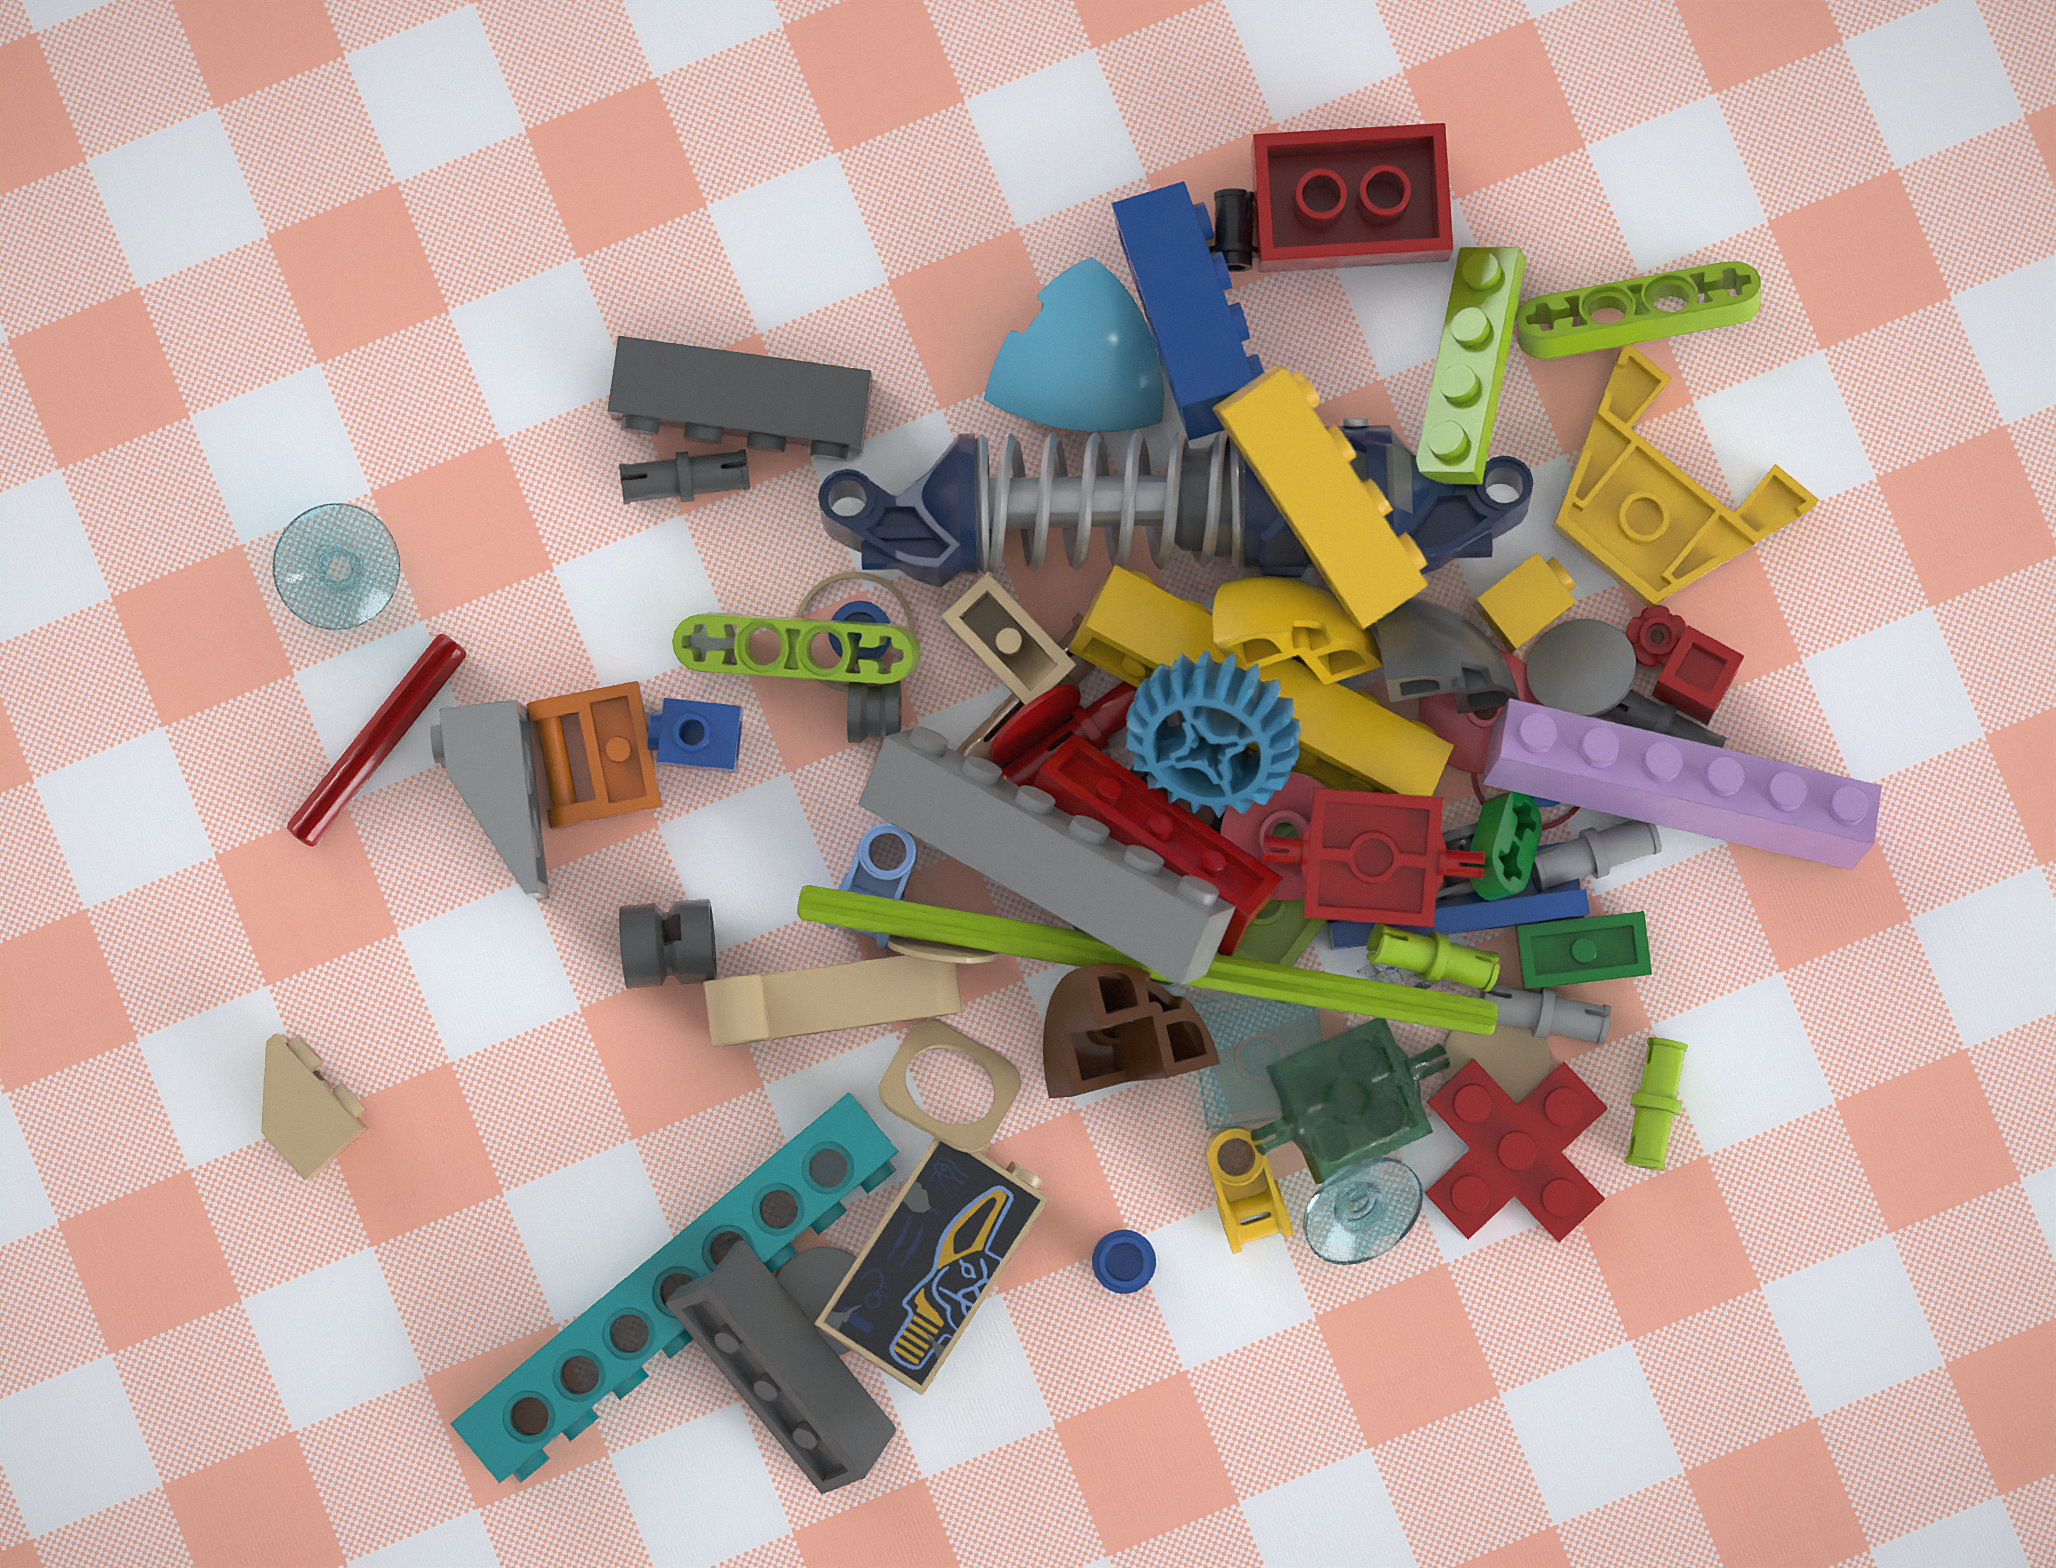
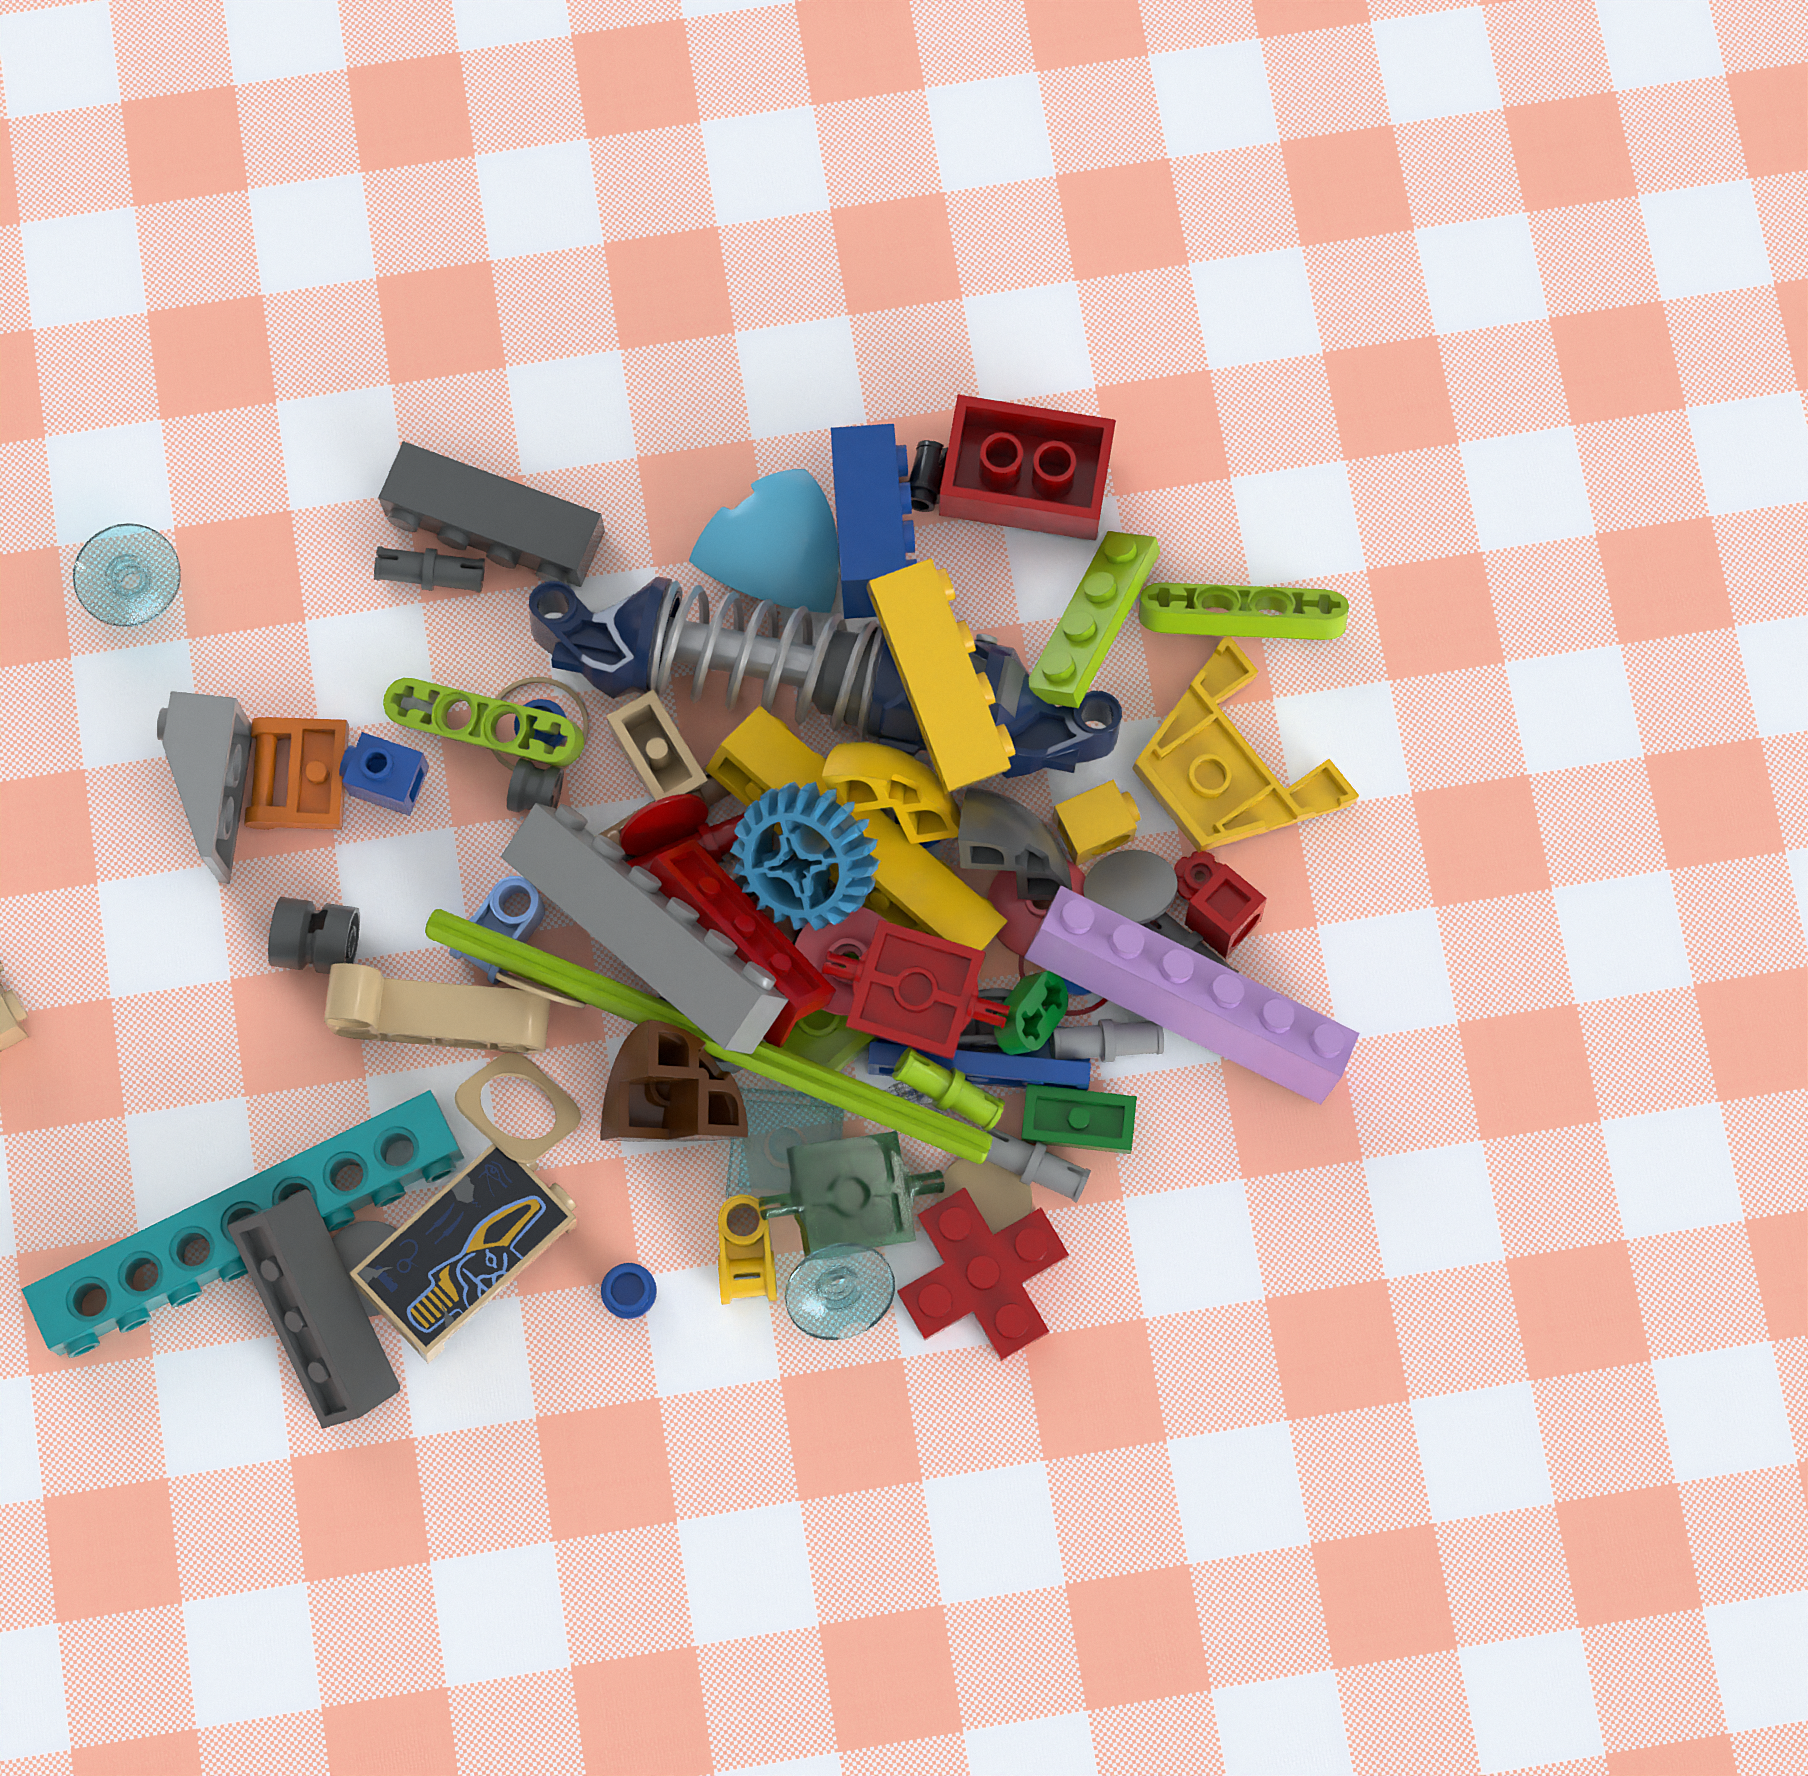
camera: 10 degrees right, 10 degrees down
(376, 740) = (120, 723): red axle -> none
(1656, 1103) = (1111, 1261): lime pin -> none

